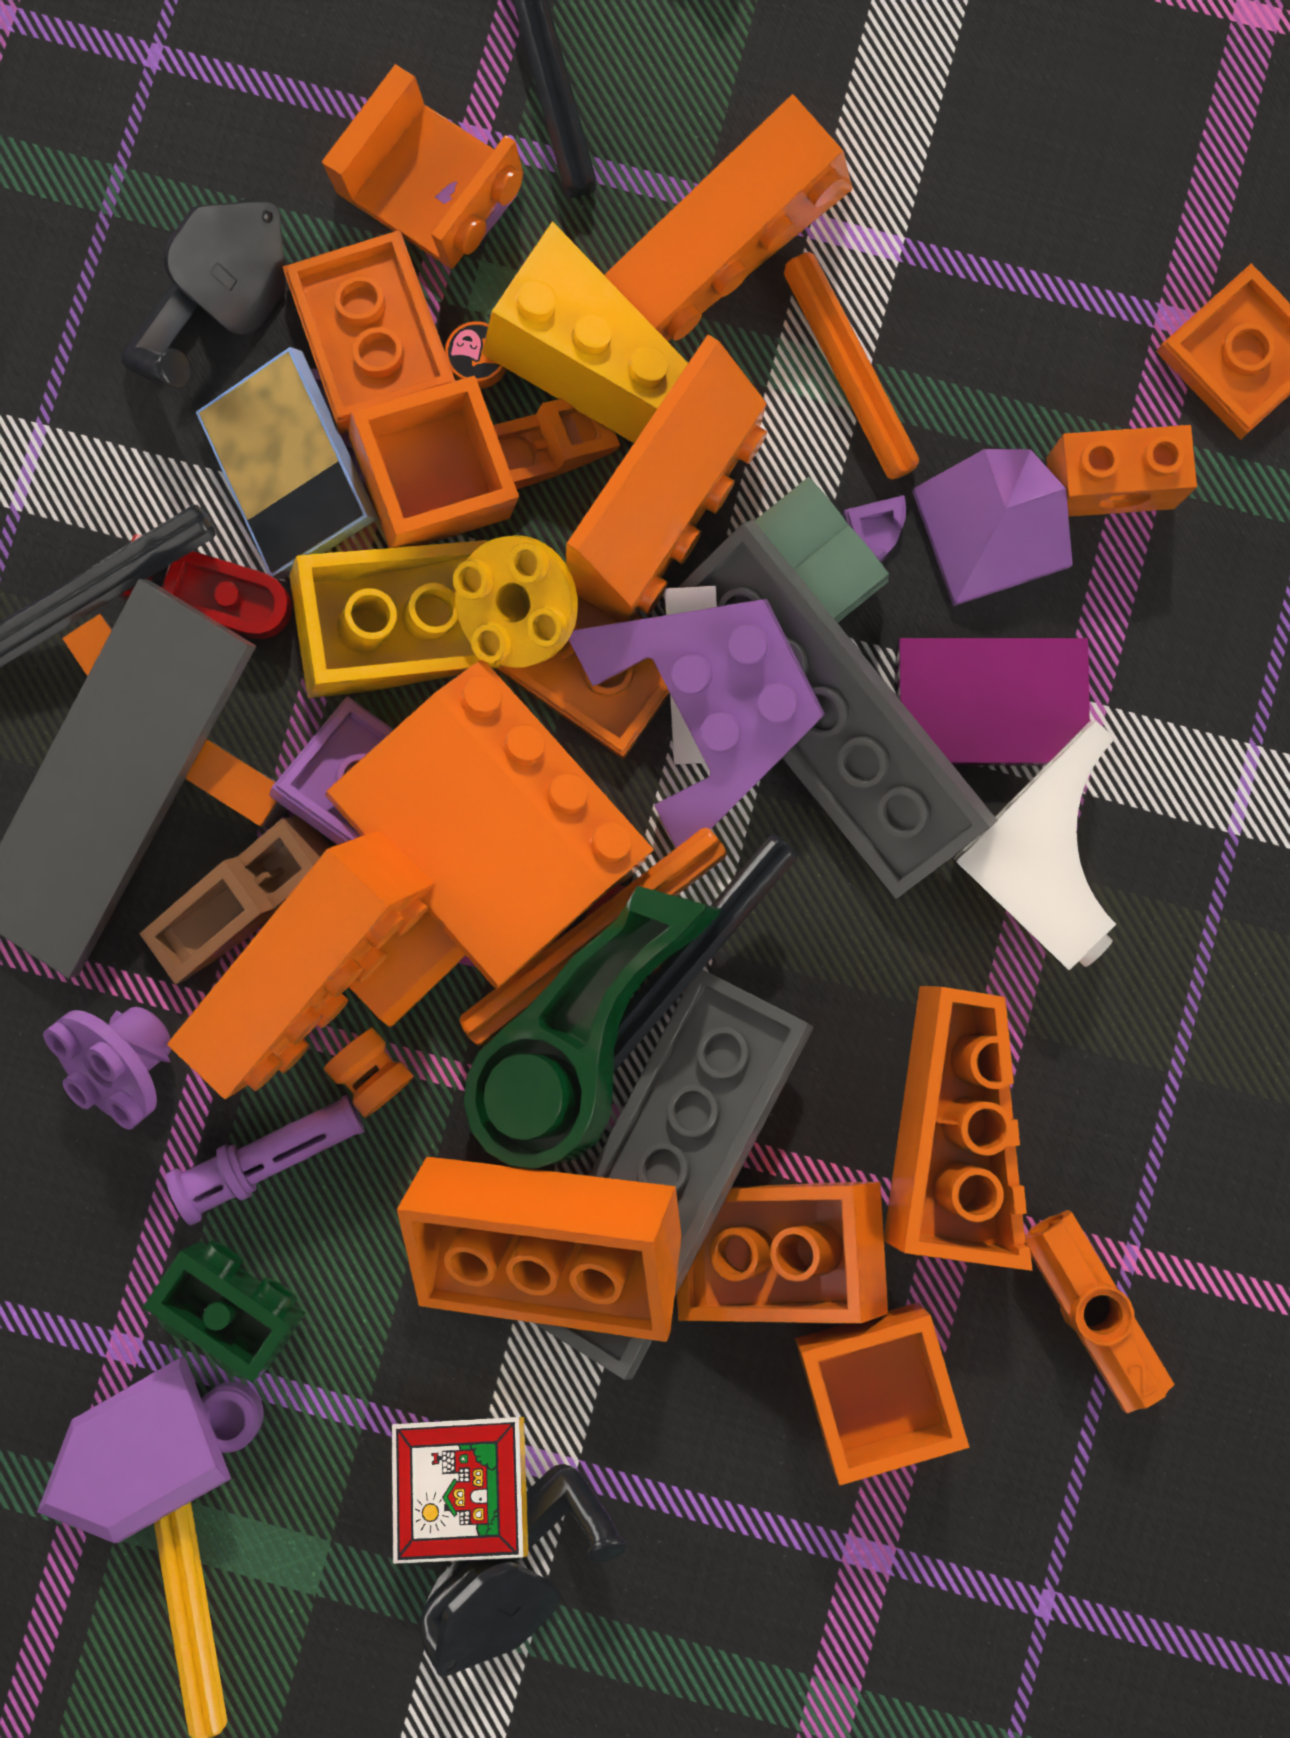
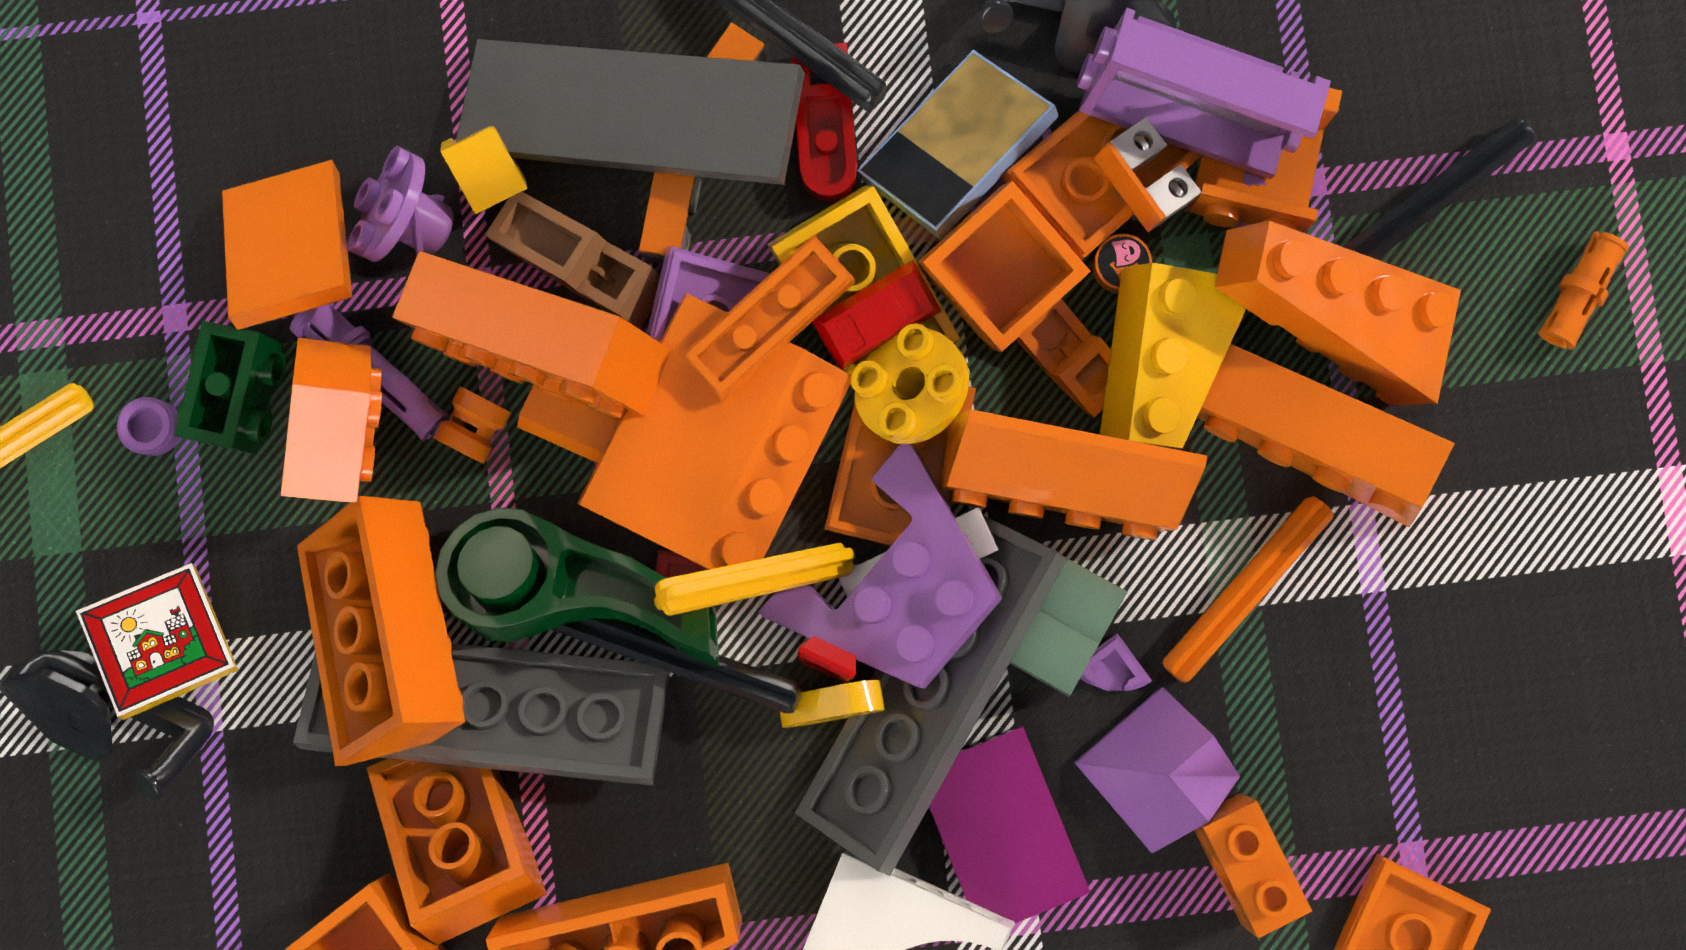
camera: 70 degrees right, 0 degrees up
(98, 1192) = (285, 245): none -> orange tile
(106, 953) = (483, 168): none -> yellow panel
(136, 1457) = (86, 365): medium lavender tile -> none
(305, 1210) = (331, 421): none -> piece
(340, 198) = (1200, 94): none -> medium lavender door
(377, 310) = (1131, 152): none -> piece
(387, 715) = (768, 318): none -> orange tile
(428, 610) = (876, 314): none -> red tile
(611, 147) = (1351, 308): none -> orange wedge
(647, 837) = (753, 578): none -> yellow axle
(668, 876) = (563, 511): orange axle -> none
(759, 797) = (828, 659): none -> red tile
(804, 810) = (836, 703): none -> yellow beam

